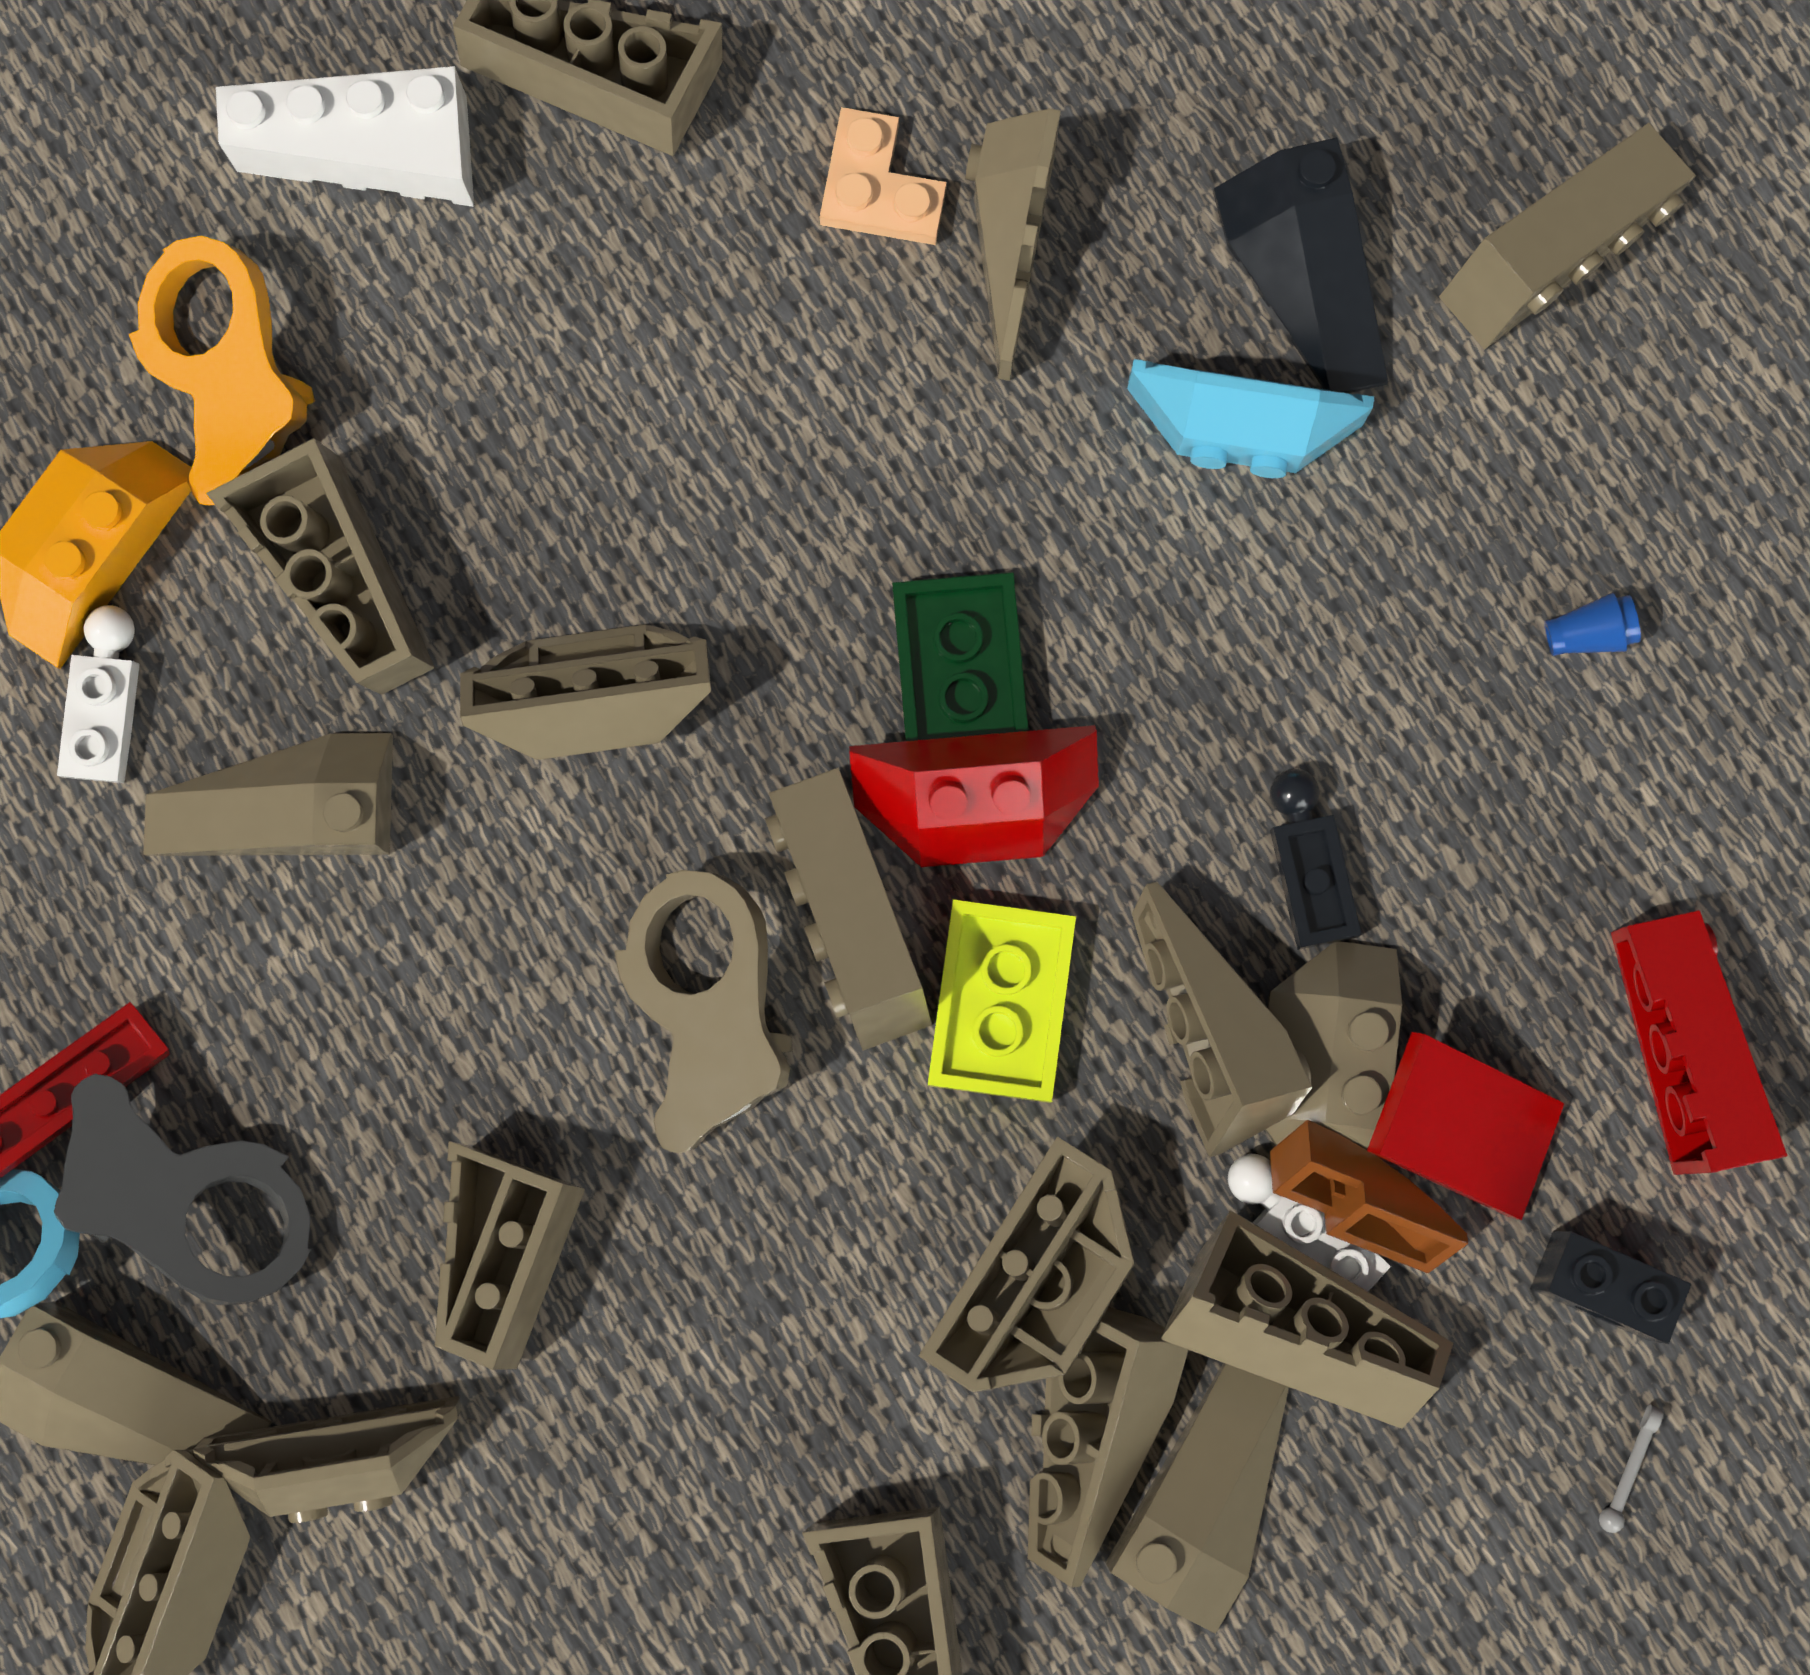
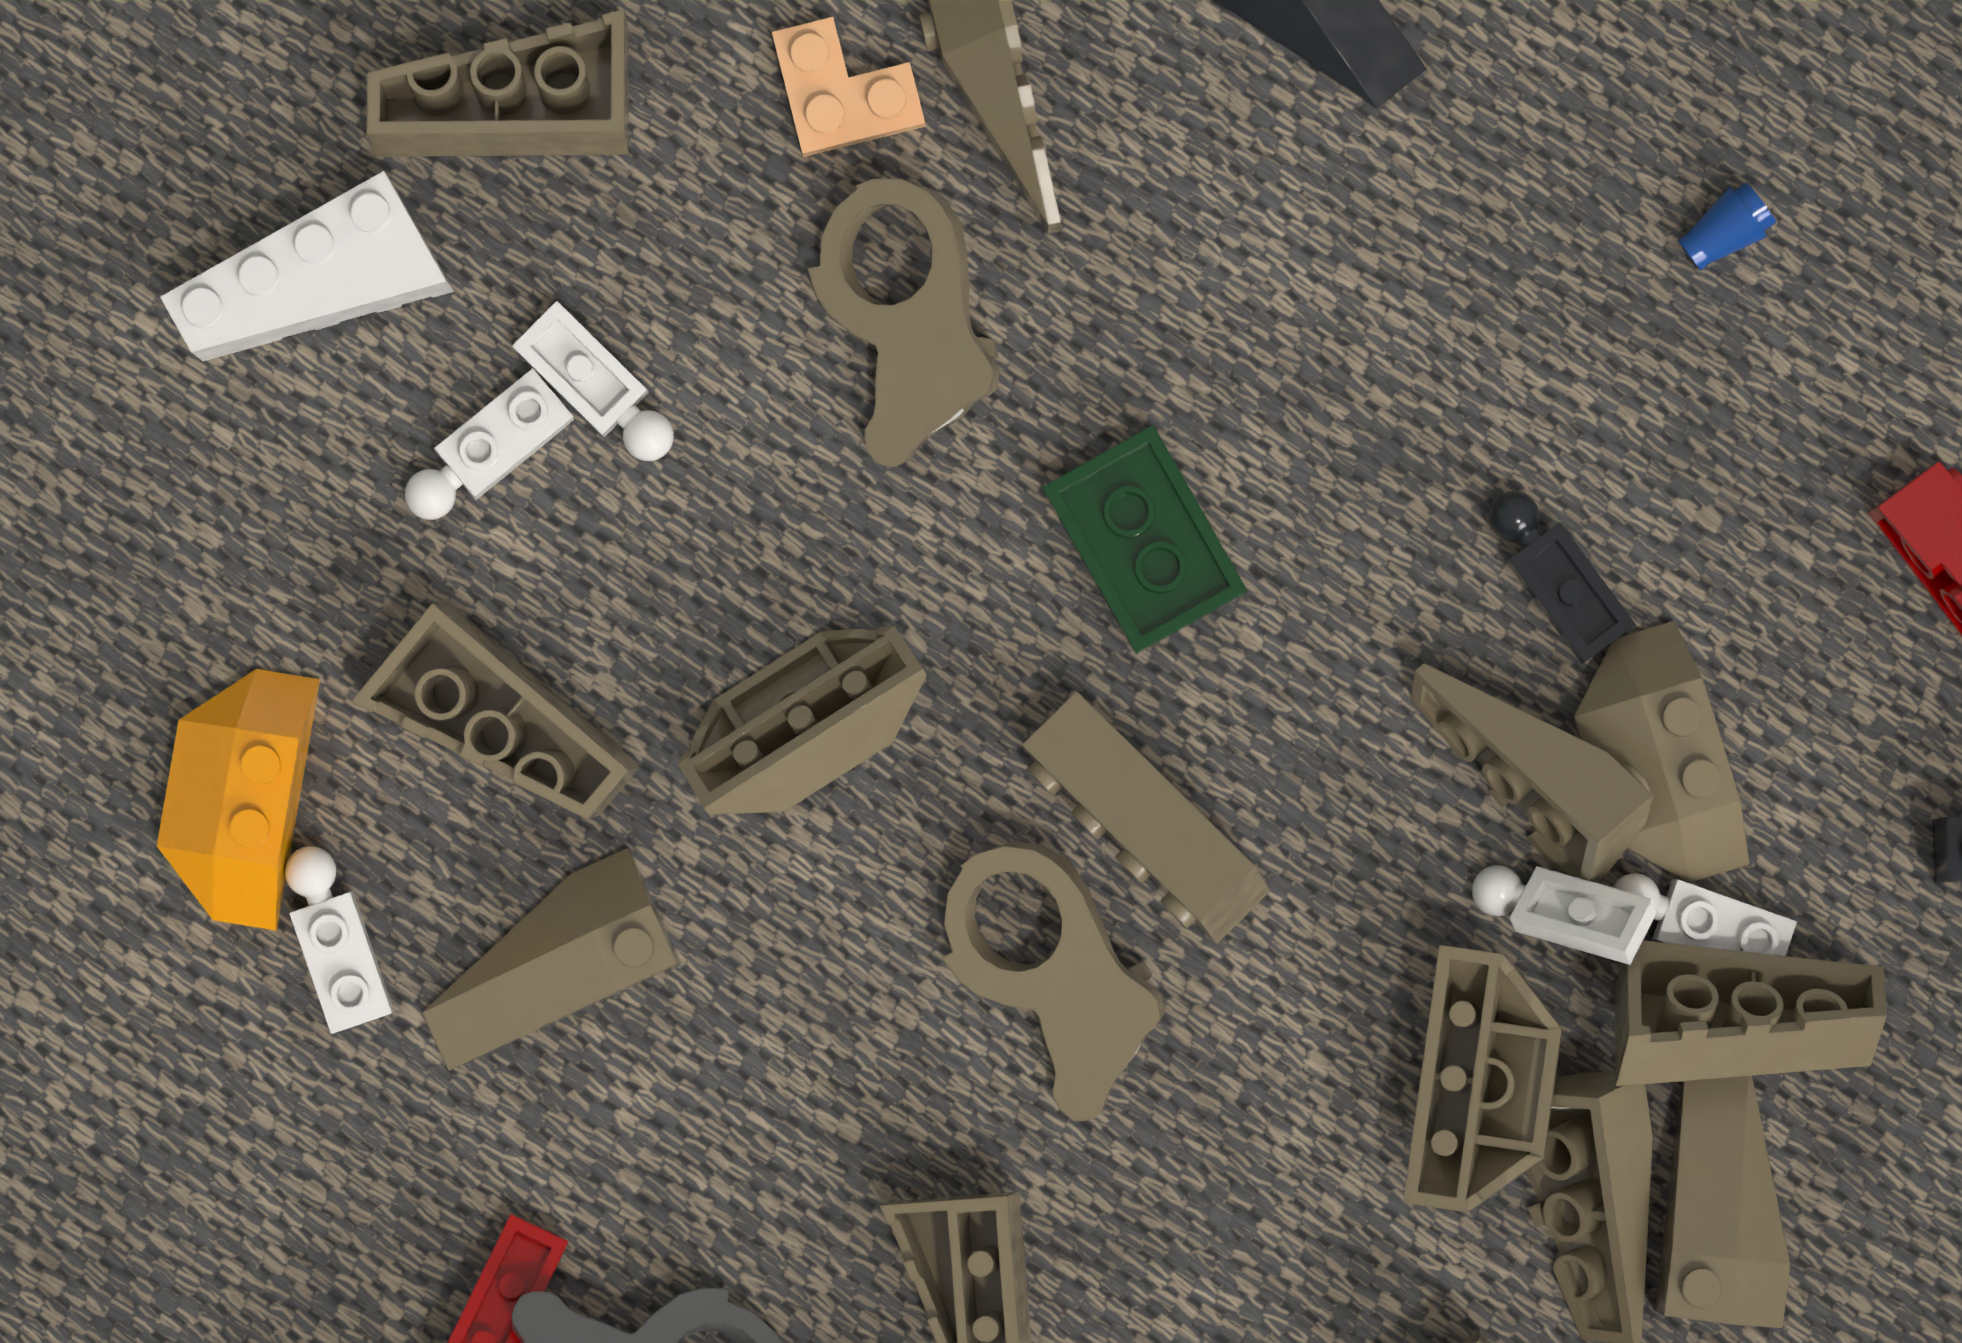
camera: 25 degrees left, 5 degrees up
(238, 393) = (328, 589): light orange animal -> none
(438, 342) = (489, 446): none -> white plate
(551, 328) = (594, 382): none -> white plate
(847, 415) = (927, 352): none -> dark tan animal
(976, 793) = (1214, 653): red wedge -> none
(1002, 1001) = (1327, 839): neon yellow plate -> none
(1188, 1161) = (1567, 910): none -> white plate
(1244, 418) = (1305, 172): medium azure wedge -> none
(1363, 1198) = (1744, 871): dark orange slope -> none
(1465, 1126) = (1810, 761): red tile -> none

